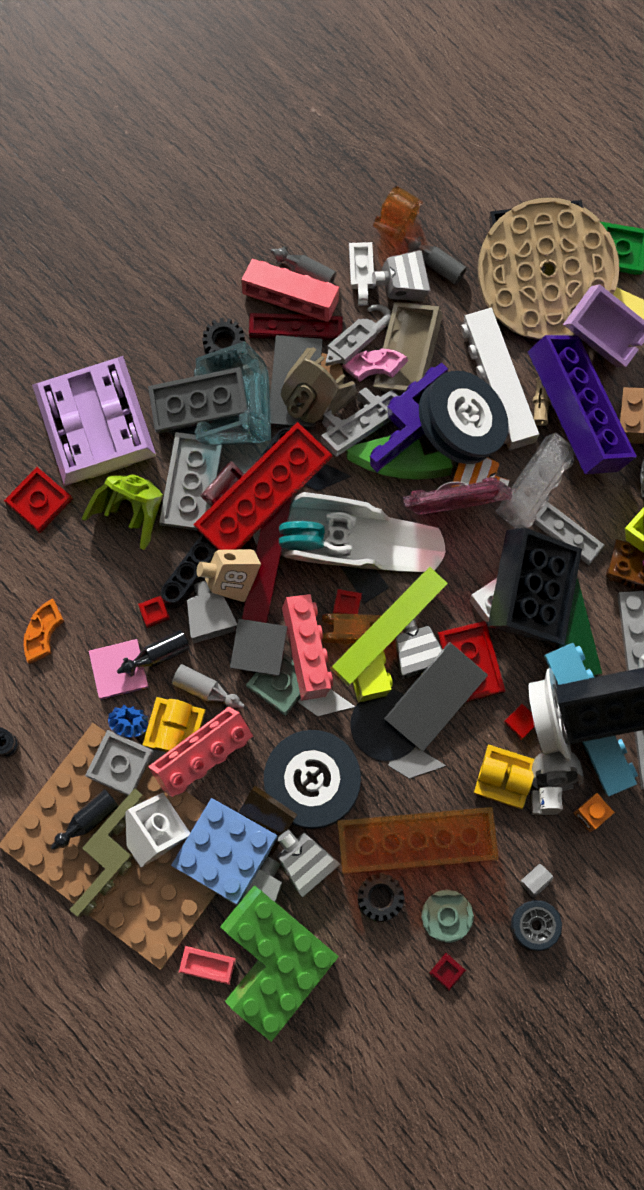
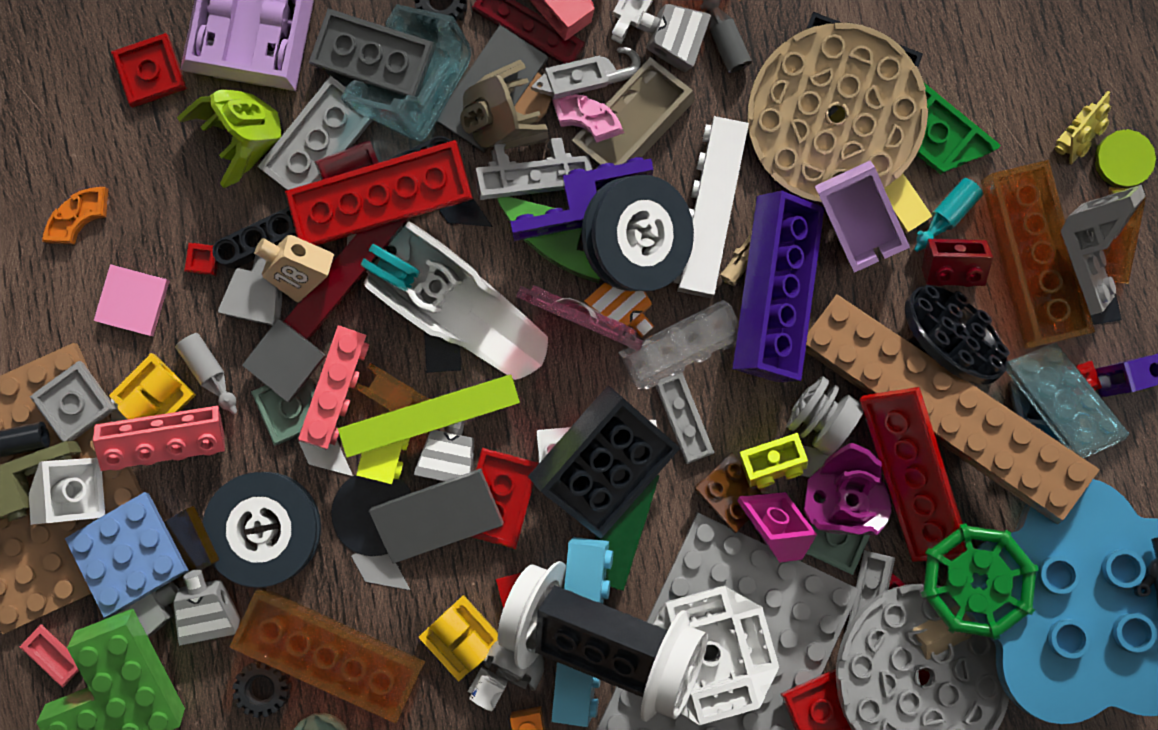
camera: 25 degrees right, 10 degrees up
(122, 727) = (95, 363): blue gear -> none
(156, 653) = (176, 306): black wheel -> none
(347, 602) = (406, 363): red tile -> none

